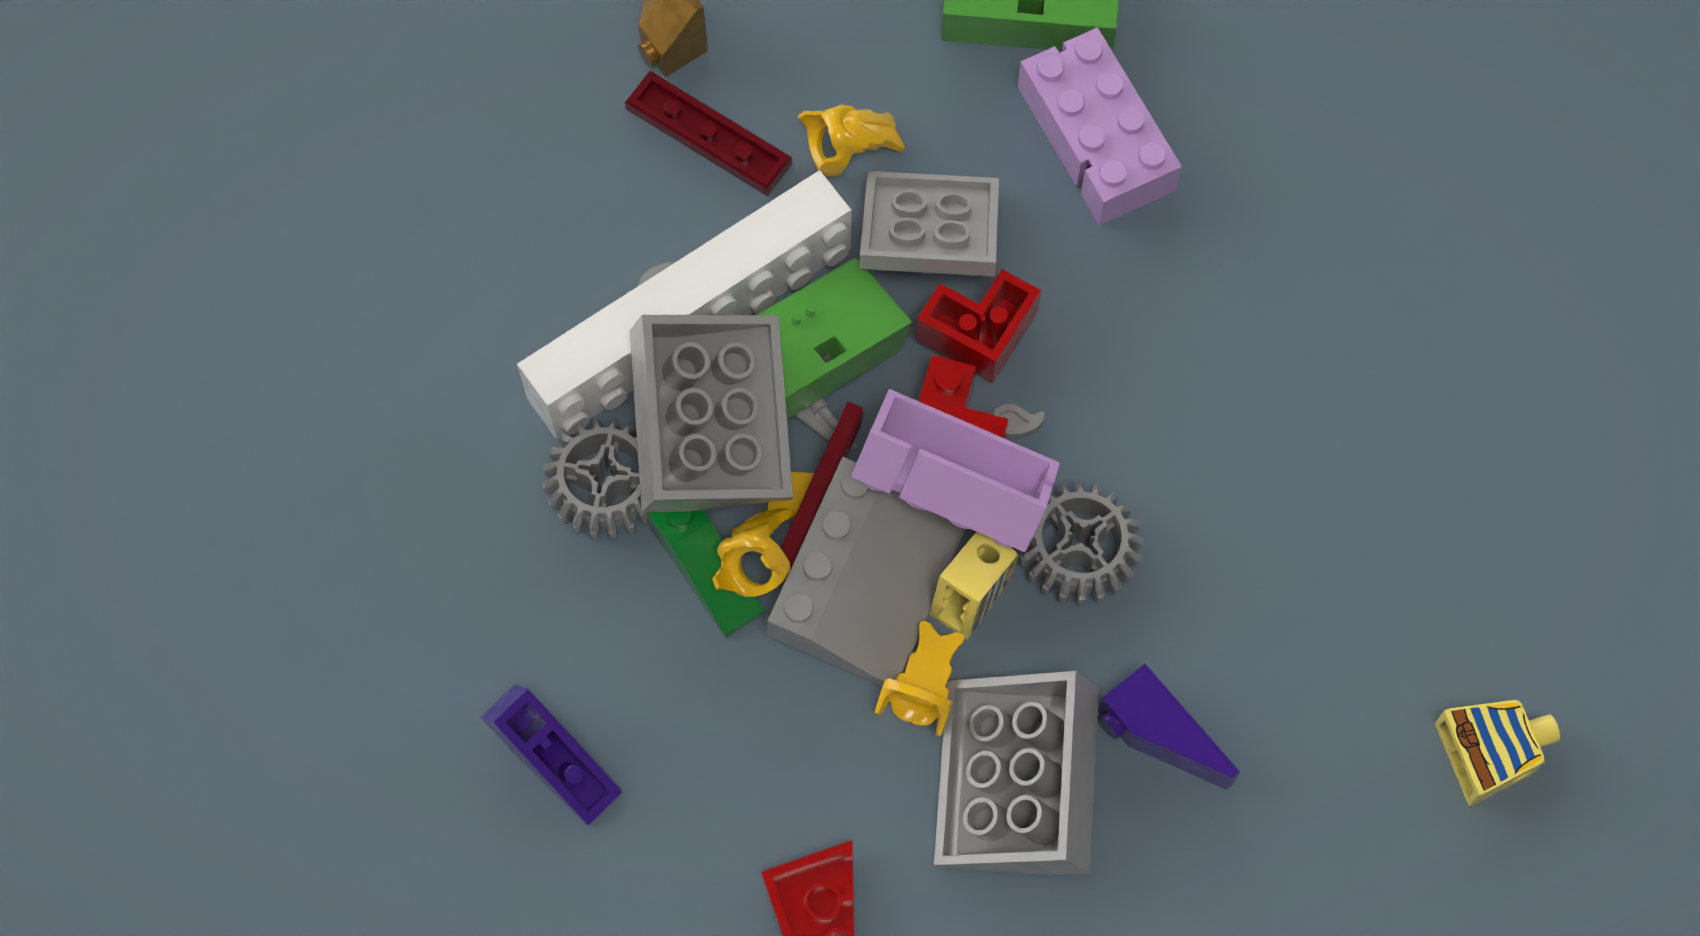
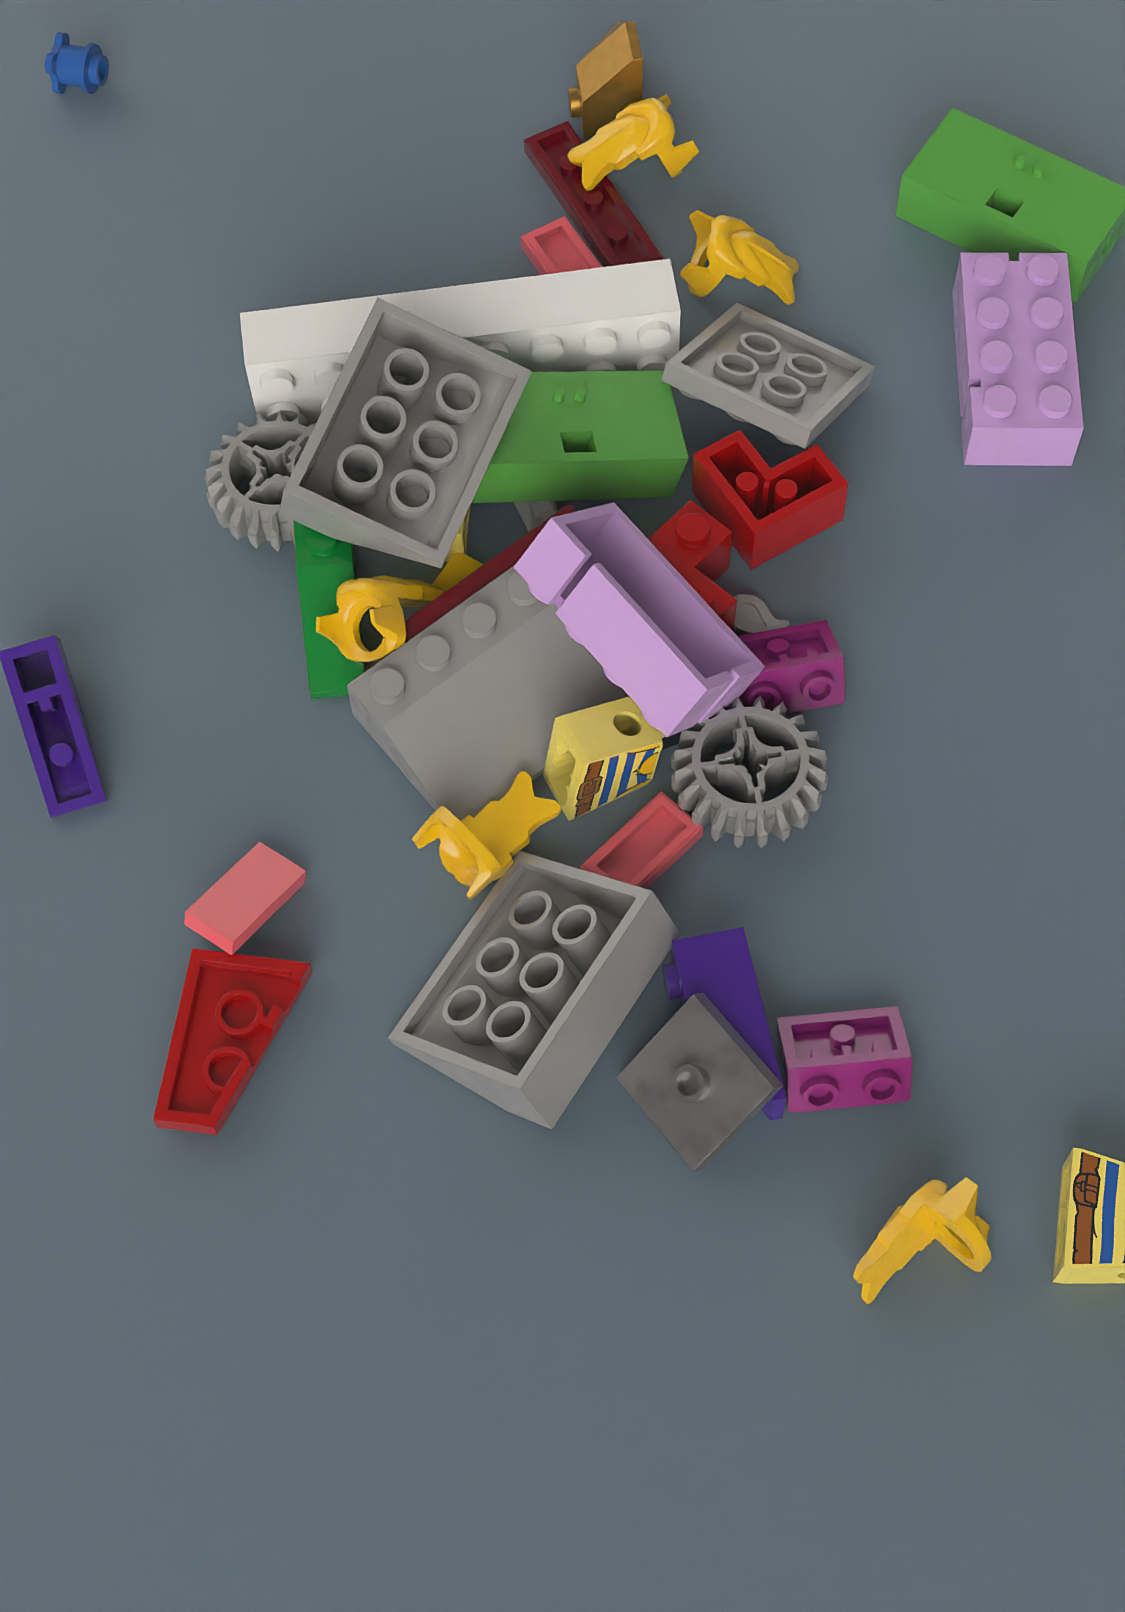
camera: 30 degrees right, 5 degrees down
(223, 195) = (76, 65): none -> blue brick
(716, 192) = (557, 248): none -> coral tile
(720, 63) = (637, 132): none -> yellow hair
(775, 815) = (245, 898): none -> coral tile
(1034, 634) = (646, 844): none -> coral tile
(1073, 440) = (800, 668): none -> magenta bracket
(1172, 789) = (699, 1081): none -> flat silver plate
(1257, 720) = (845, 1059): none -> magenta bracket
(1389, 801) = (924, 1217): none -> yellow hair

